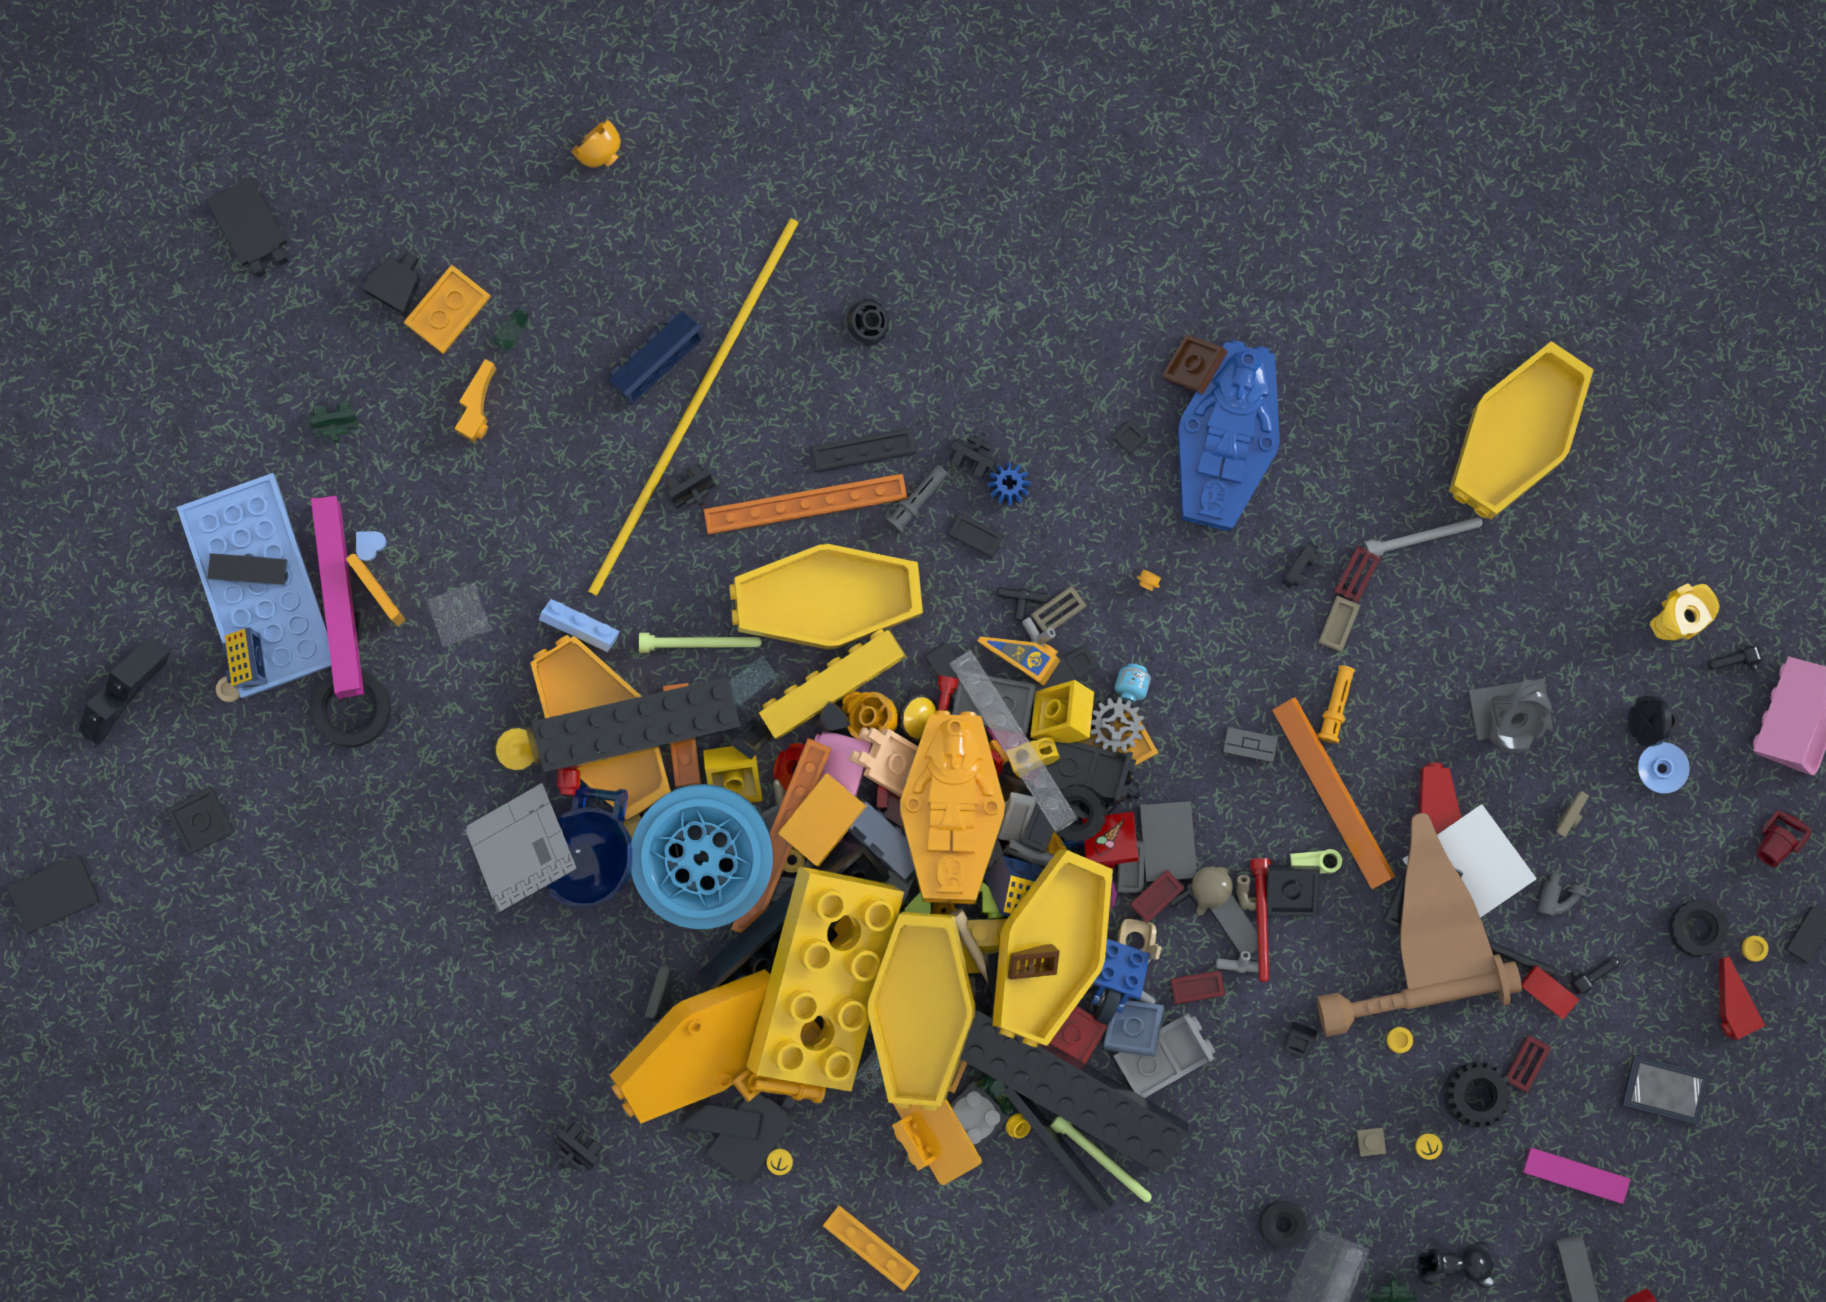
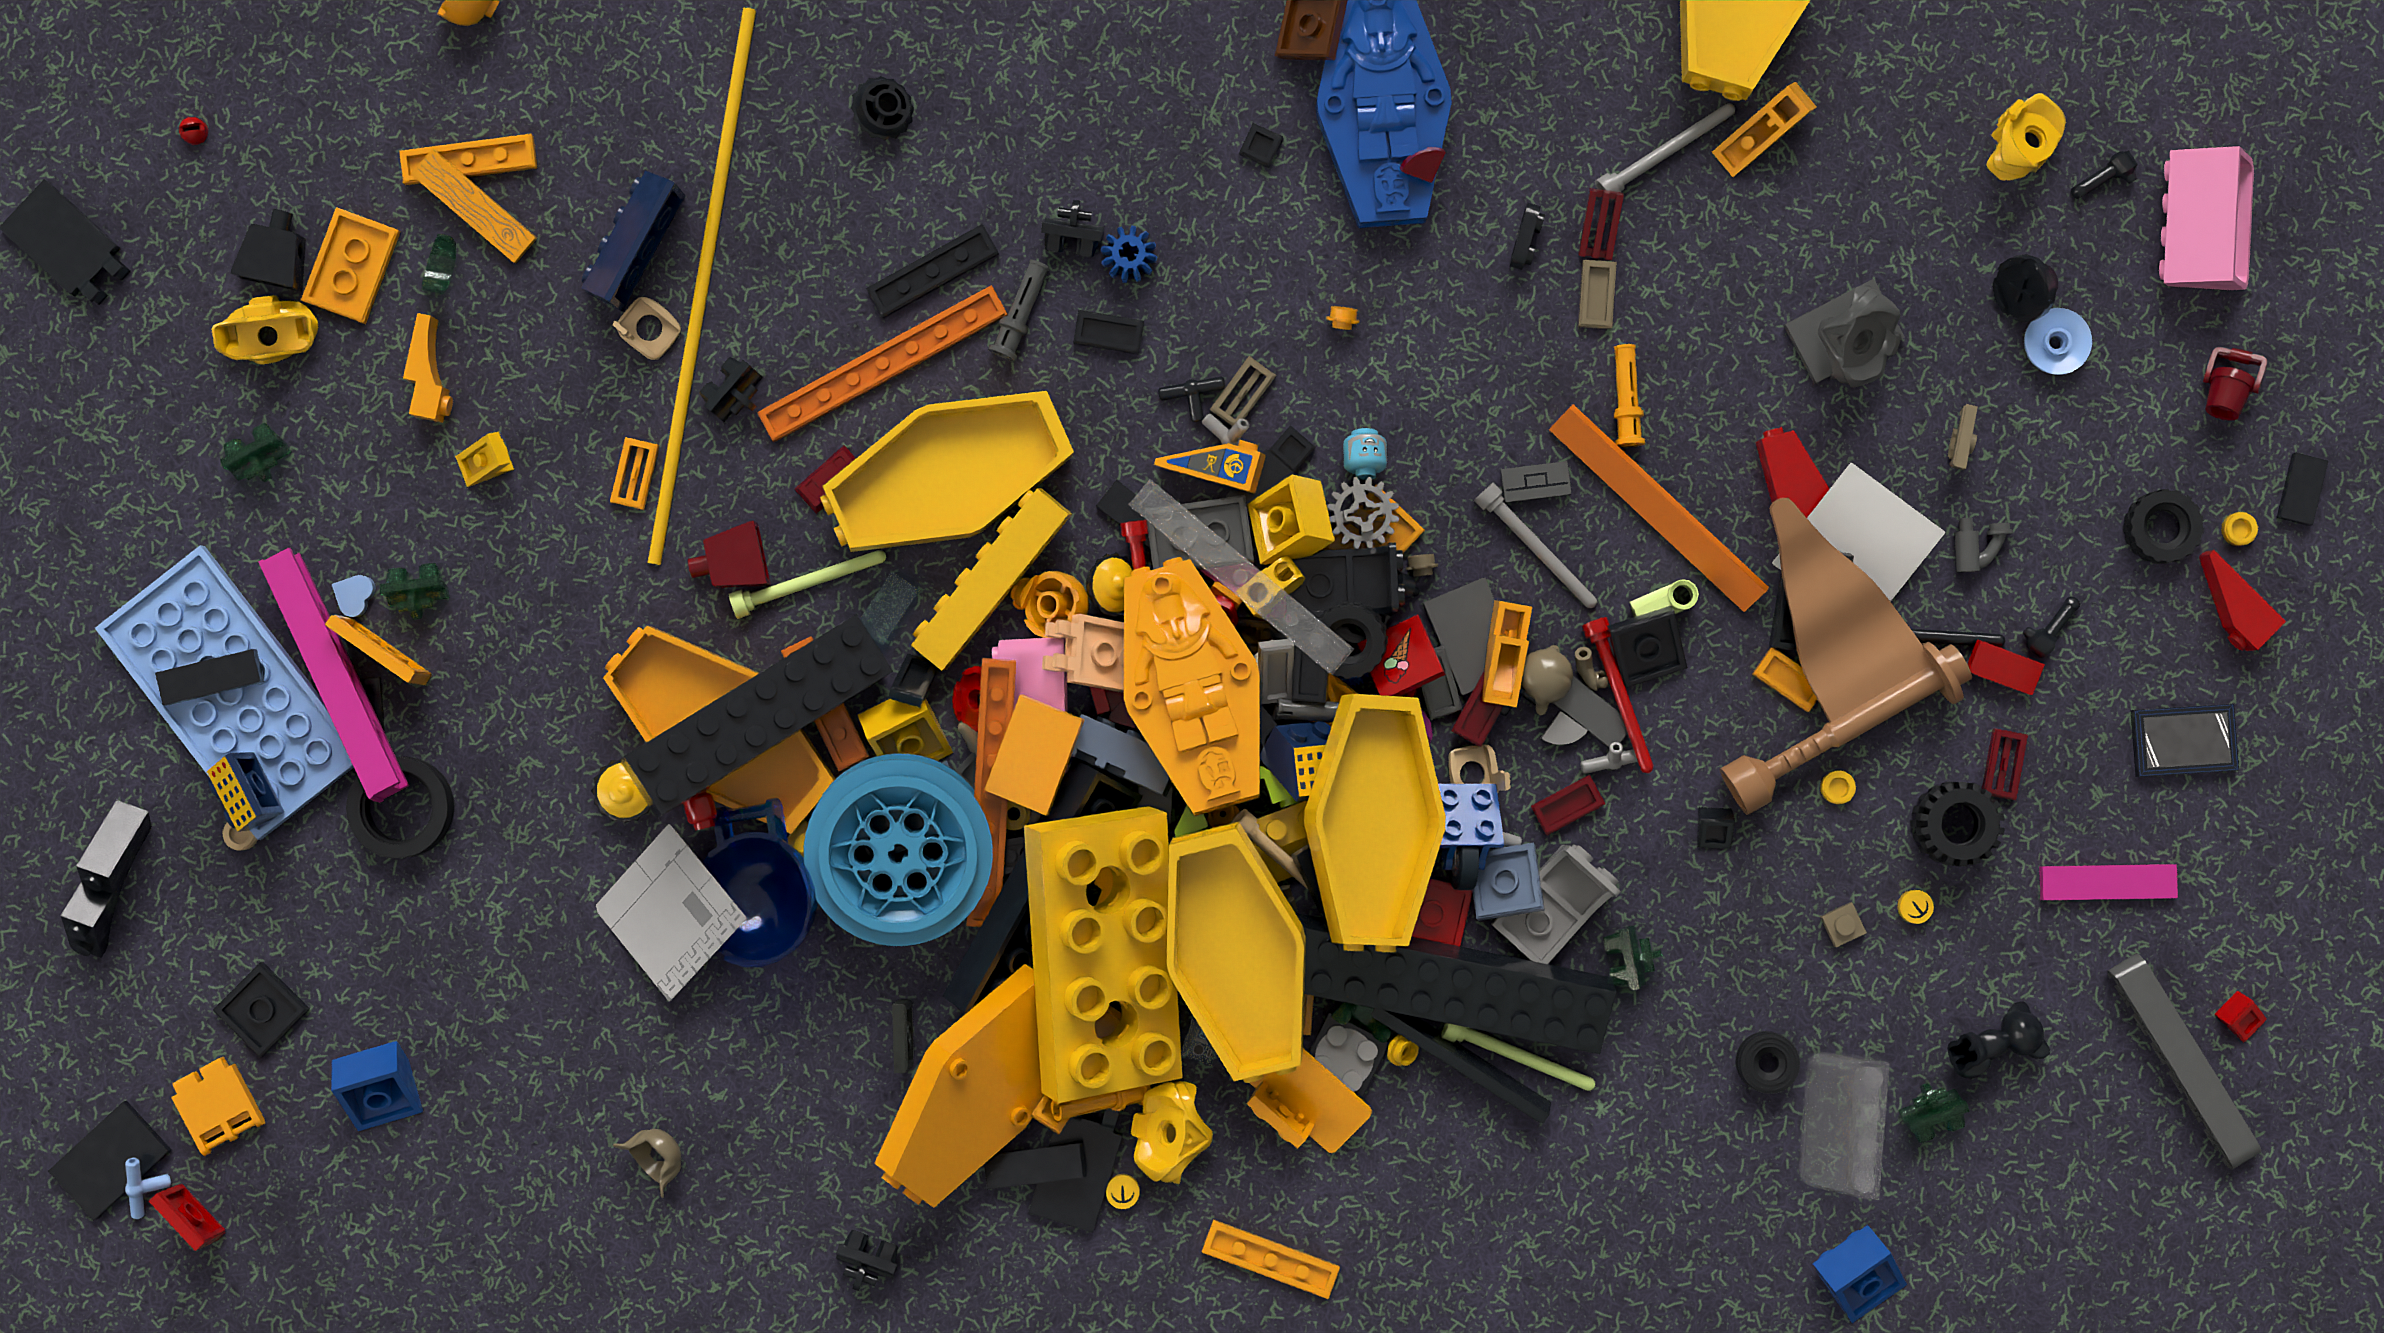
camera: 15 degrees left, 5 degrees up
(67, 920) = (136, 1187): none -> light blue piece
(98, 952) = (187, 1216): none -> red tile
(144, 878) = (215, 1104): none -> light orange plate
(264, 903) = (375, 1086): none -> blue slope
(351, 334) = (239, 333): none -> yellow piece
(367, 181) = (193, 136): none -> red hinge
(412, 557) = (416, 593): none -> clear green hips
(440, 1011) = (665, 1145): none -> dark tan hair
(459, 615) = (496, 646): clear tile -> none
(496, 479) = (484, 459): none -> yellow slope
(550, 296) = (473, 206): none -> light orange tile
(557, 261) = (477, 157): none -> light orange tile
(579, 625) = (650, 609): light blue plate -> none
(609, 528) = (647, 476): none -> light orange tile
(632, 414) = (628, 324): none -> tan piece
(651, 608) = (733, 558): none -> dark red torso
(726, 575) = (812, 487): none -> dark red tile
(828, 1127) = (1169, 1131): none -> yellow piece
(832, 718) = (1005, 621): black tile -> none
(1047, 968) = (1378, 848): reddish brown slope -> none
(1147, 777) = (1421, 564): none -> dark tan plate
(1188, 860) = (1506, 653): none -> light orange slope
(1207, 1101) = (1632, 972): none -> clear green hips
(1212, 932) = (1563, 730): none -> light grey tile
(1214, 747) = (1493, 501): none -> light grey piece
(1242, 489) = (1423, 163): none -> dark red tile
(1386, 947) = (1786, 678): none -> light orange tile
(1498, 544) = (1764, 129): none -> light orange slope

